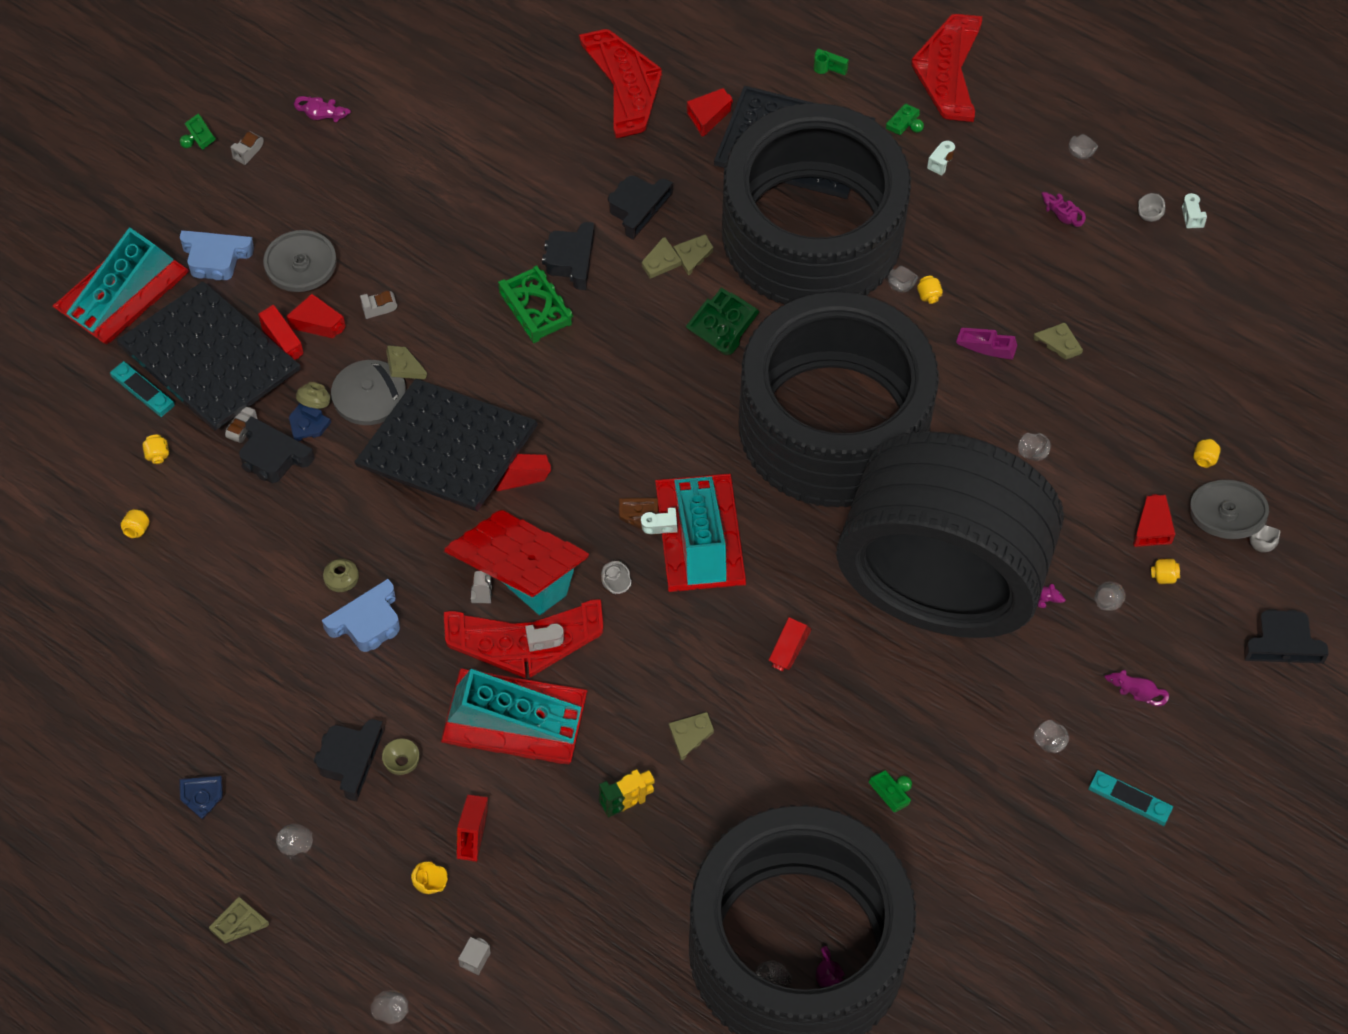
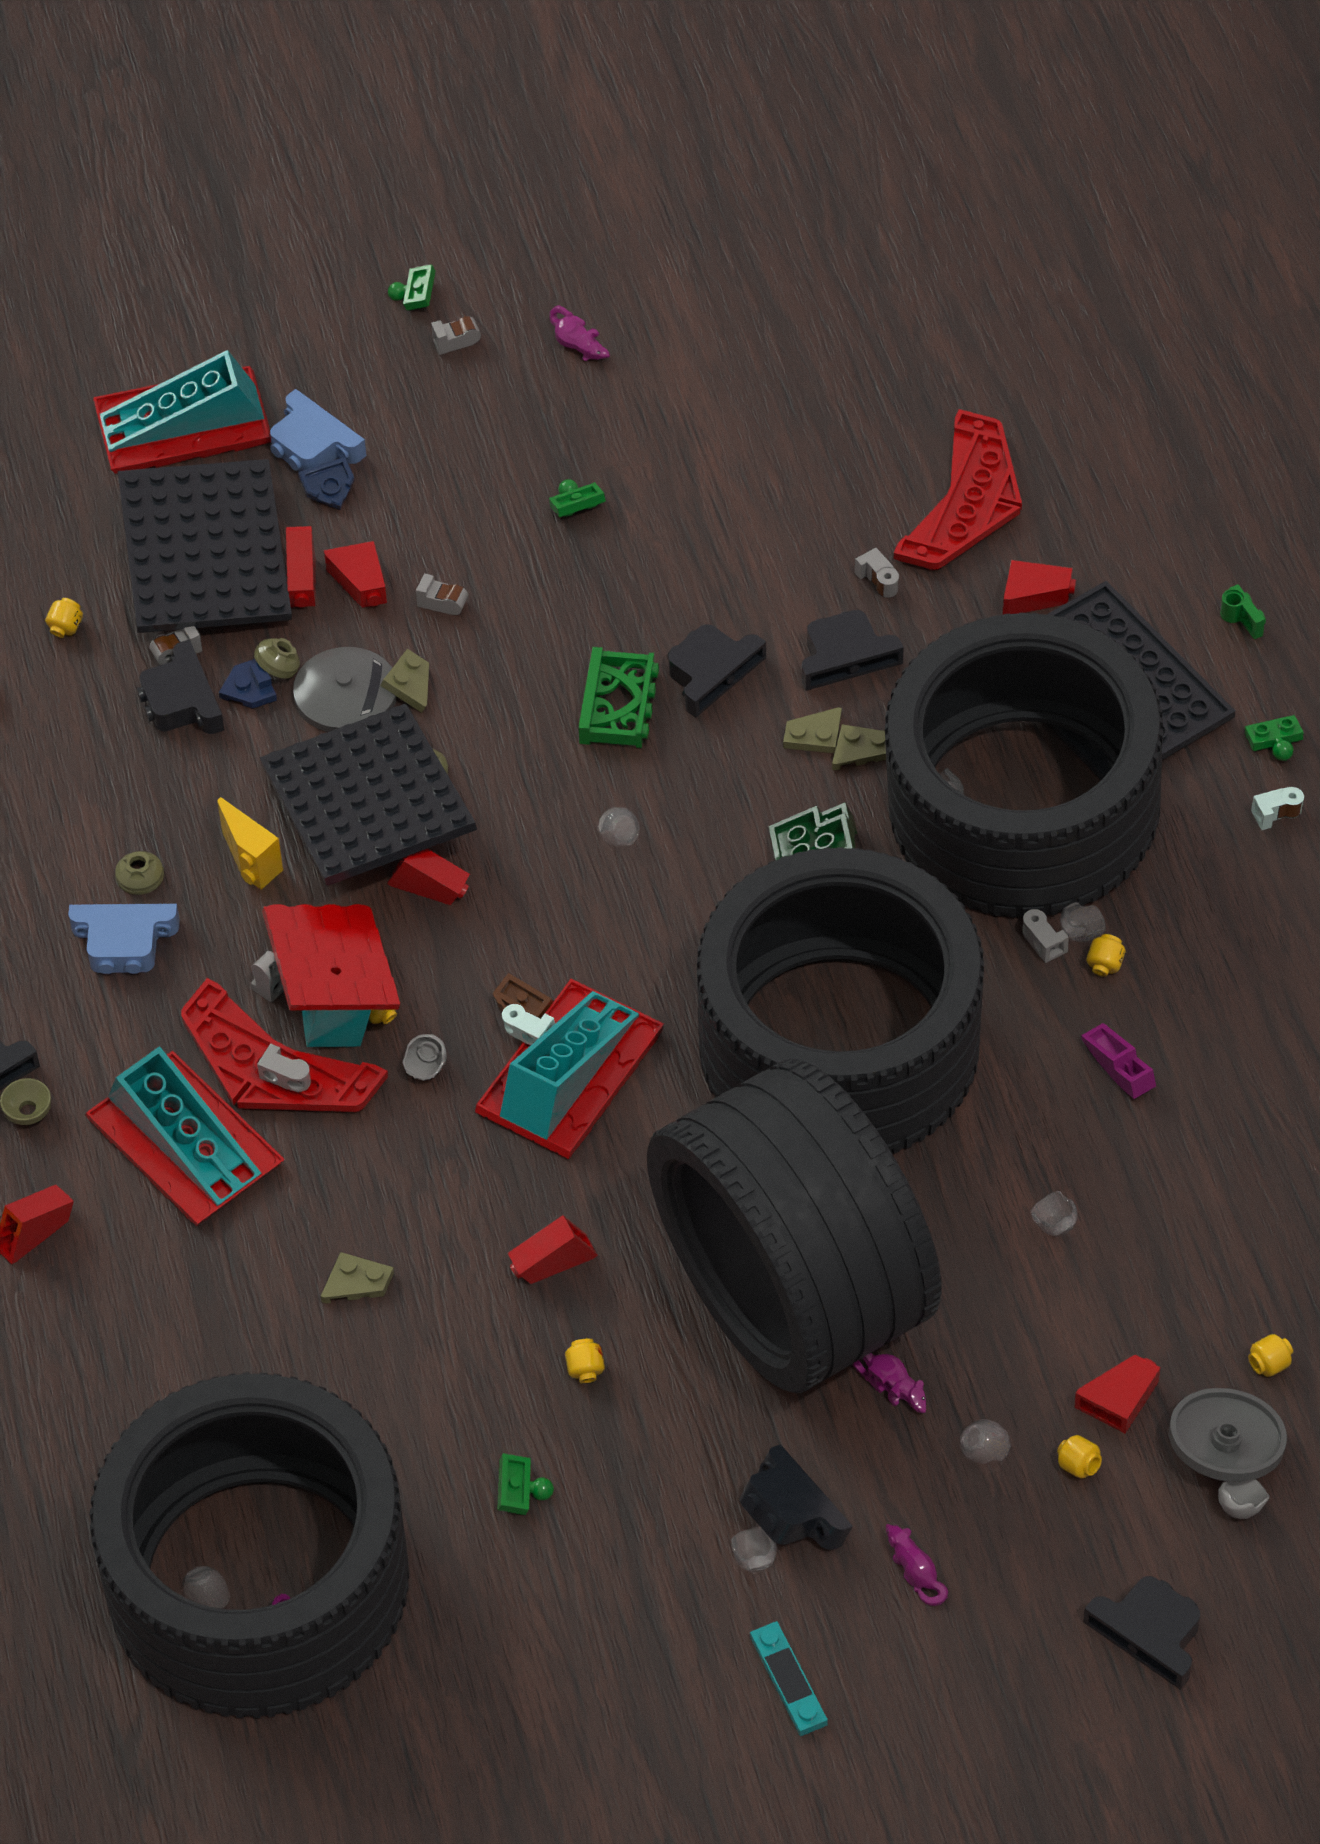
camera: 40 degrees right, 5 degrees down
(142, 389) = (109, 544): teal plate -> none
(248, 275) = (328, 482): none -> dark blue plate
(300, 260) = (395, 496): dark grey dish -> none
(398, 516) = (251, 845): none -> yellow slope
(405, 206) = (575, 499): none -> green plate
(601, 377) = (619, 827): none -> clear hair
(617, 149) = (878, 571): none -> light grey leg
(626, 792) = (221, 1291): hips -> none
(863, 693) = (585, 1360): none -> yellow head
(892, 298) = (1043, 937): none -> light grey leg
(1049, 698) = (791, 1504): none -> black brick
(1060, 341) = (1216, 1113): olive wing -> none

